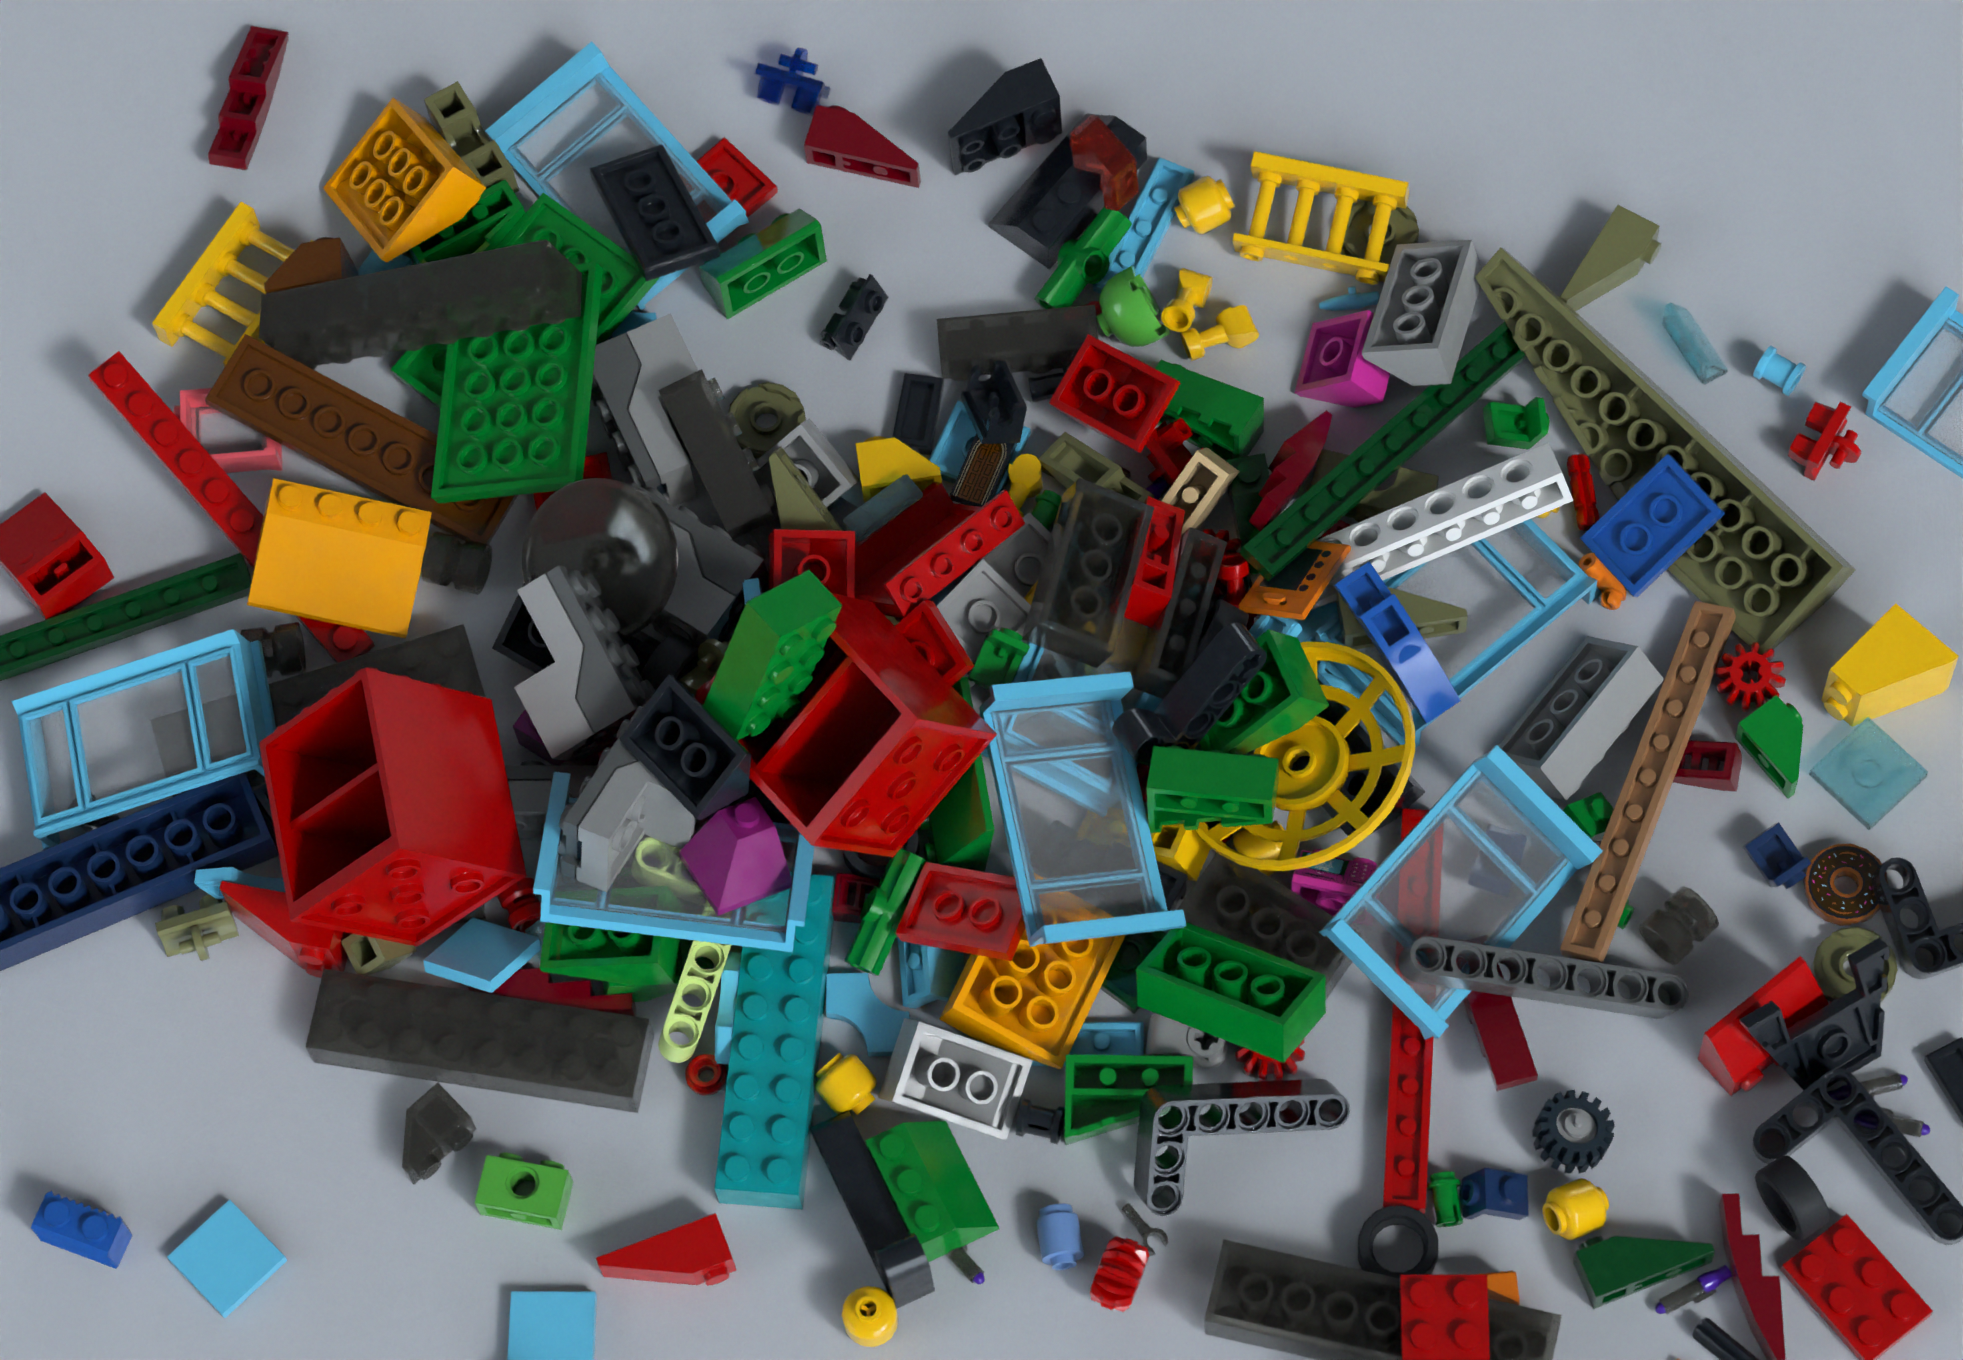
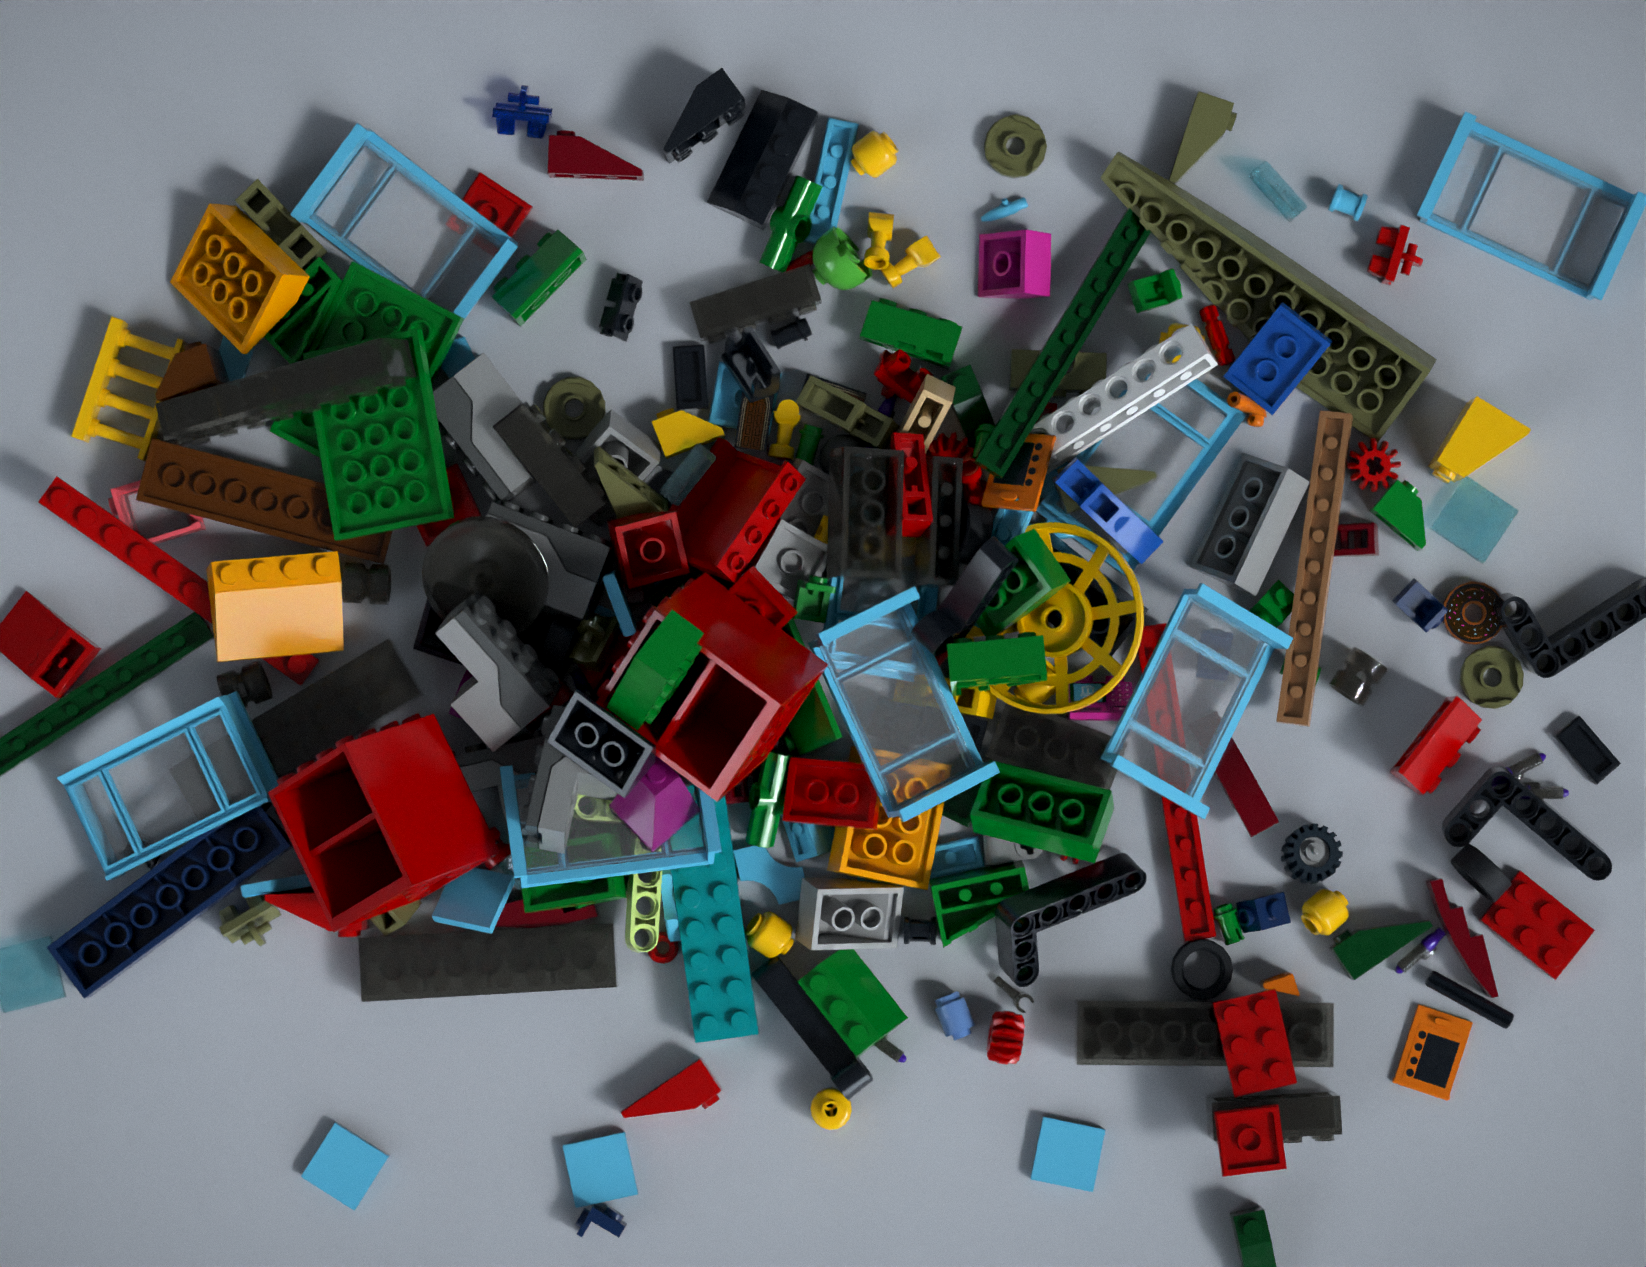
camera: 15 degrees left, 20 degrees up
(81, 1230) = (232, 1172): blue brick -> none
(249, 97) = (88, 216): dark red slope -> none
(432, 1131) = (471, 1037): clear smoke slope -> none
(542, 1207) = (536, 1079): bright green brick -> none
(654, 212) = (446, 262): black tile -> none
(1101, 152) = (792, 143): clear red slope -> none
(1114, 394) = (846, 342): red slope -> none
(1291, 469) = (997, 372): dark red slope -> none
(1309, 180) = (953, 121): yellow fence -> none
(1424, 311) = (1067, 218): light grey slope -> none
(1561, 971) = (1255, 748): dark grey beam -> none
(1838, 1035) = (1490, 744): black wing -> none

